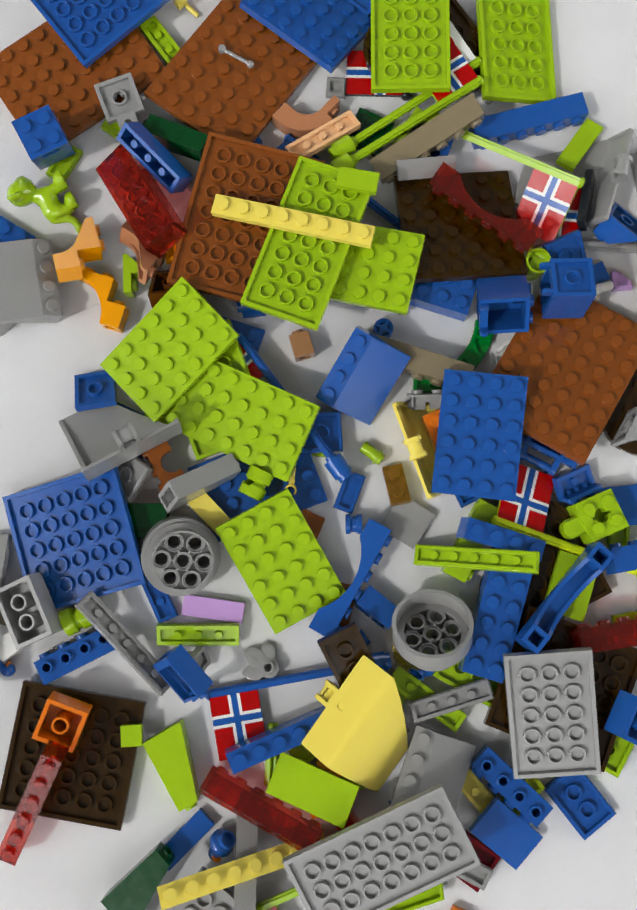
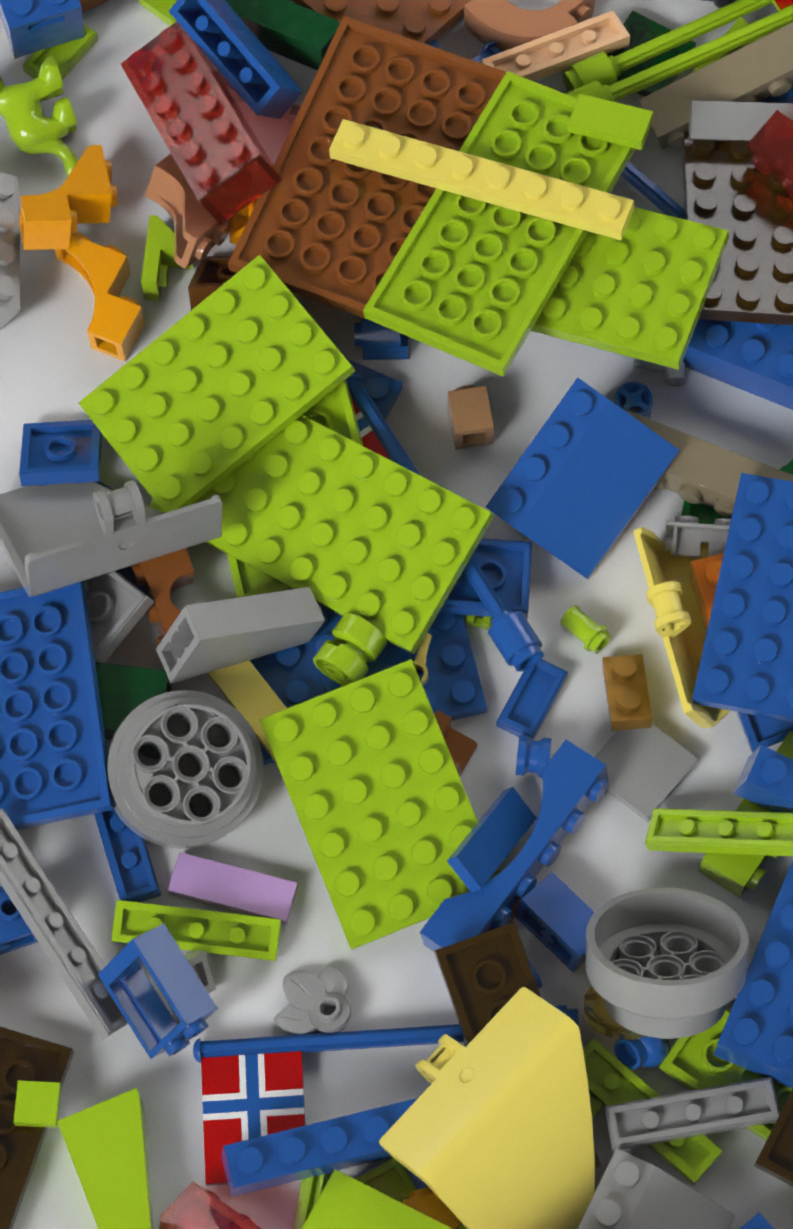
camera: 10 degrees right, 15 degrees down
(338, 574) = (491, 839): none -> blue tile

